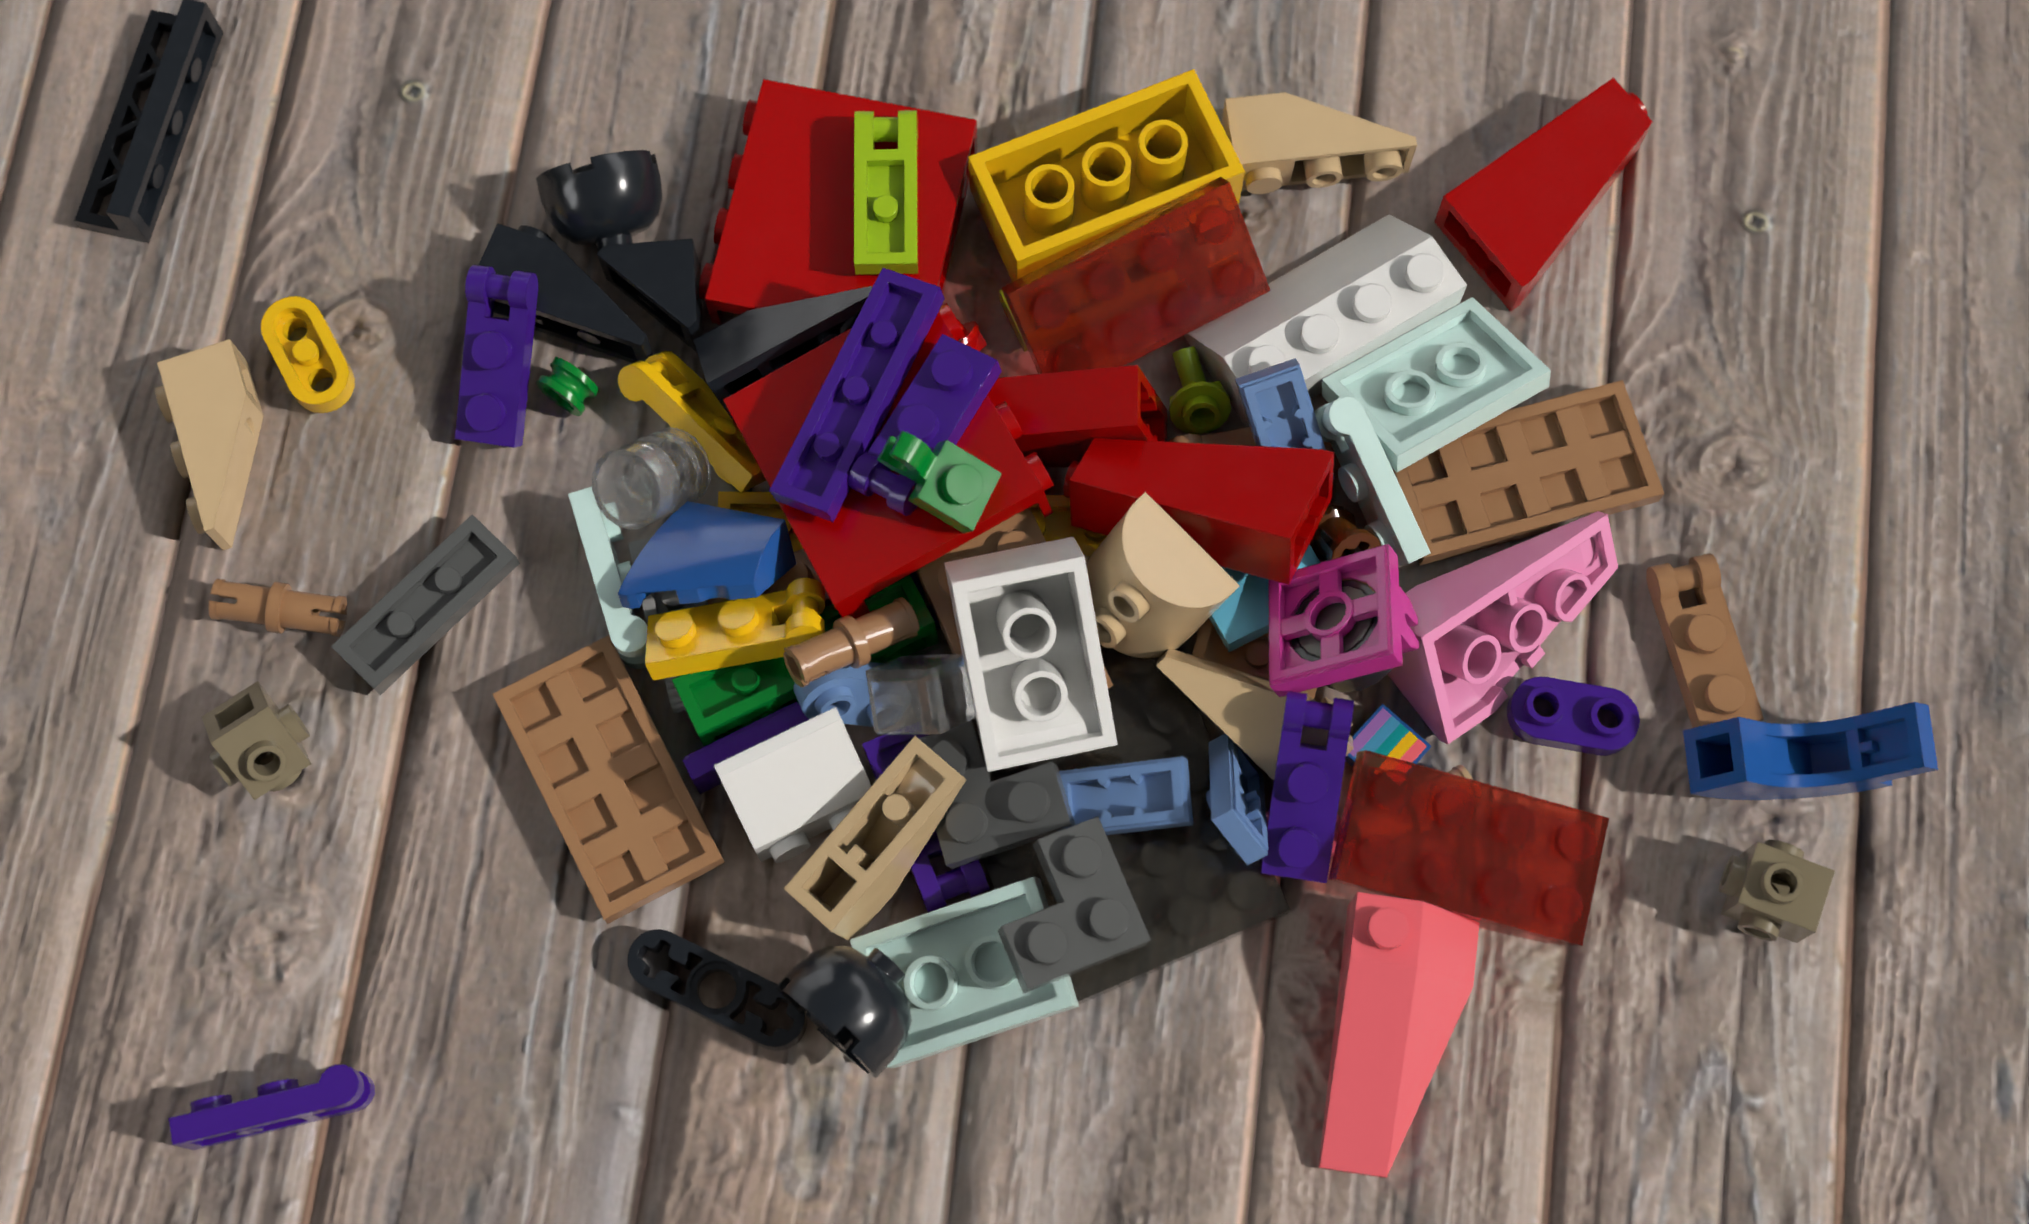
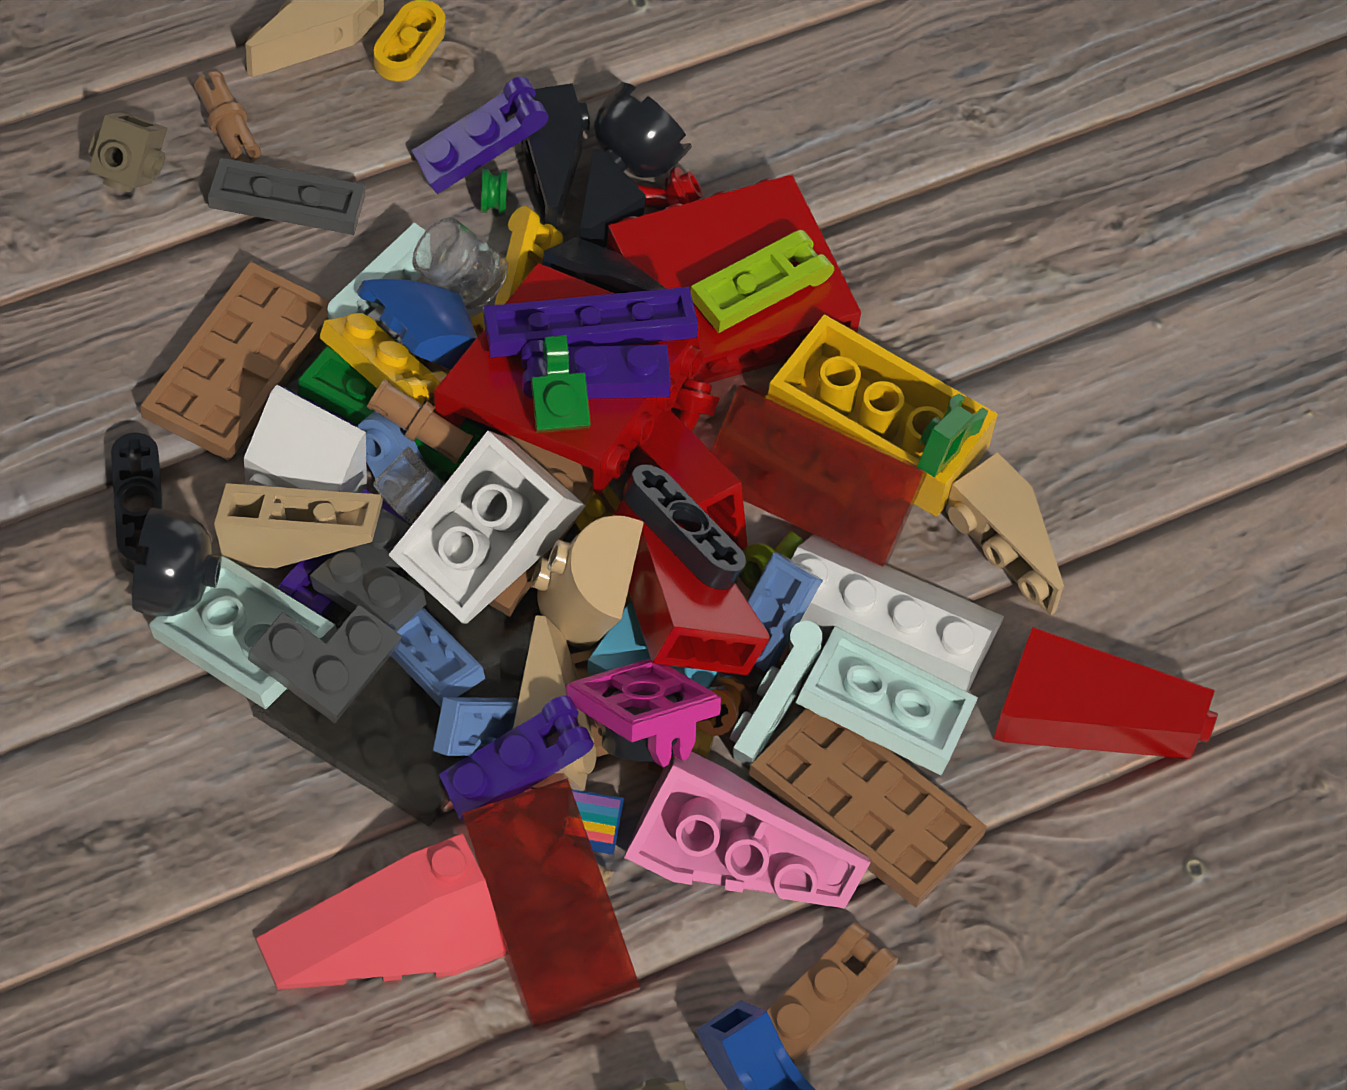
camera: 50 degrees right, 15 degrees down
(693, 202) = (679, 188): none -> red plate
(1201, 465) = (706, 550): none -> black beam
(1209, 132) = (946, 436): none -> green plate
(1574, 717) = (704, 930): dark purple plate -> none

